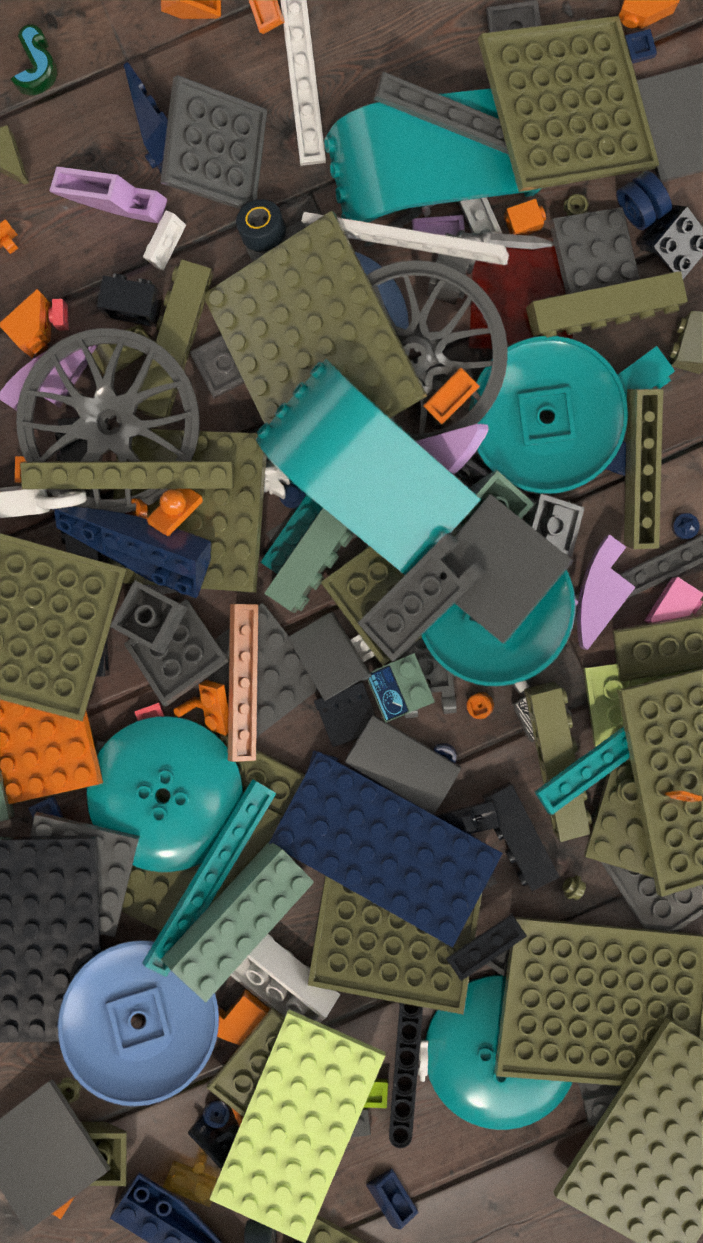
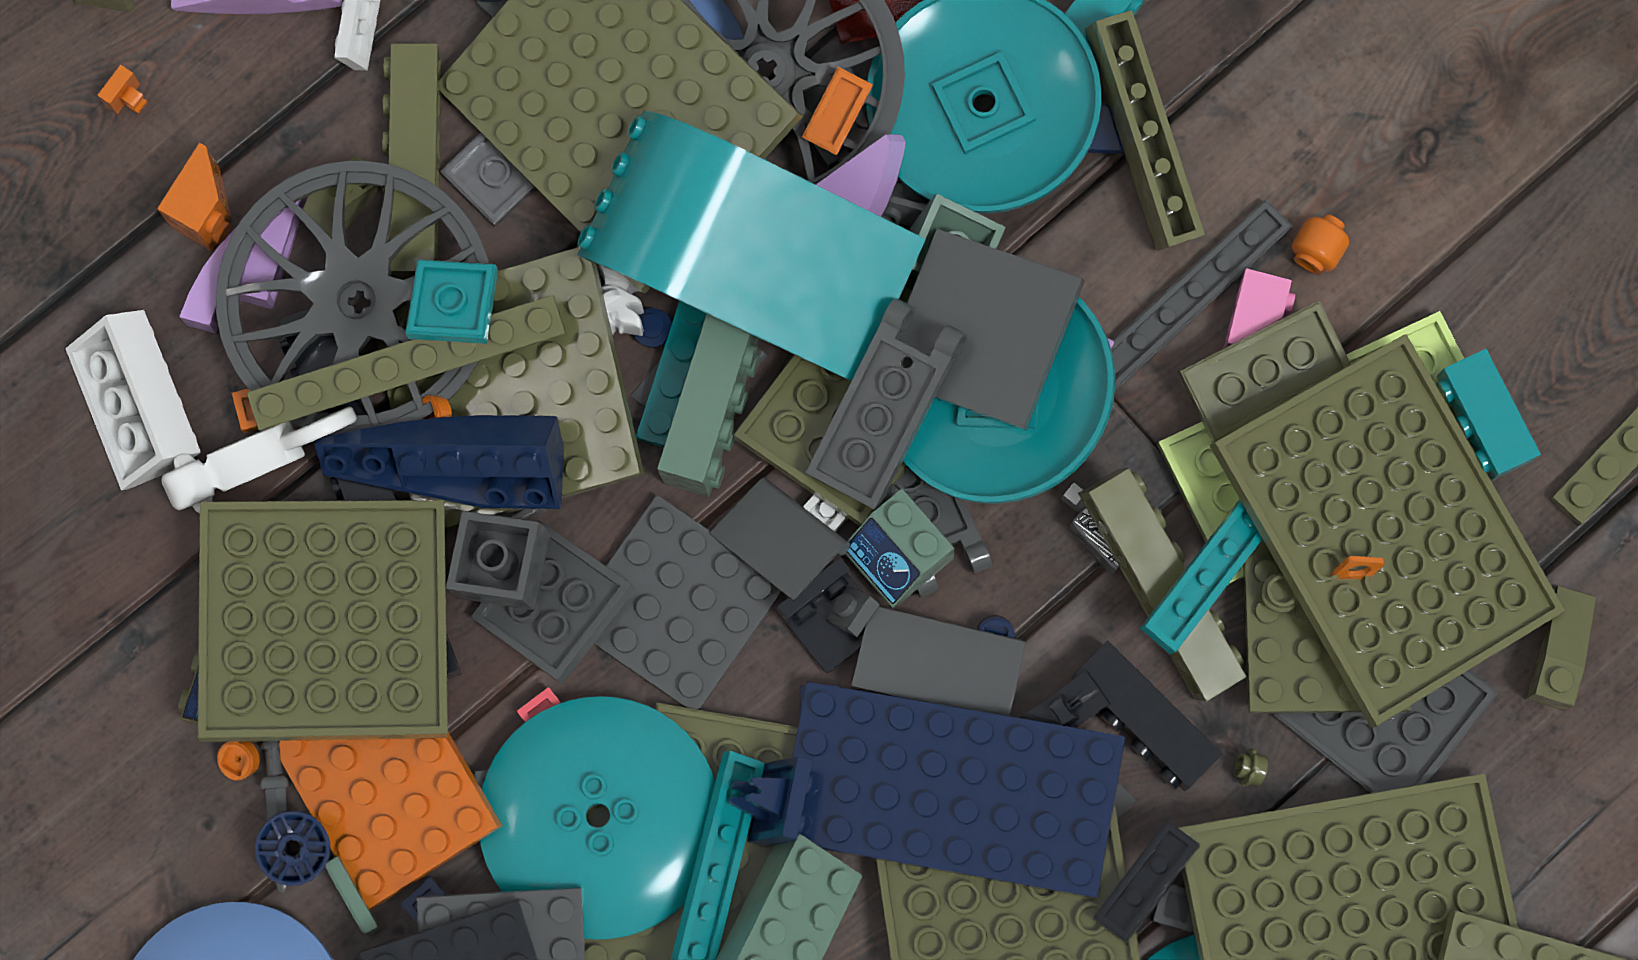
camera: 25 degrees left, 10 degrees down
(59, 314) = (235, 176): coral plate -> none
(129, 300) = (334, 122): black brick -> none
(166, 446) = (452, 301): none -> teal tile
(174, 509) = (490, 388): orange tile -> none
(213, 703) = (630, 662): orange plate -> none
(243, 682) = (665, 614): nougat plate -> none
(274, 823) = (775, 800): none -> dark blue plate
(360, 716) = (852, 611): none -> dark grey plate
(480, 705) = (1024, 544): orange tile -> none
(555, 521) = (1045, 239): dark grey plate -> none
(600, 592) = (1143, 324): lavender slope -> none
(685, 526) = (1235, 197): dark blue tile -> none

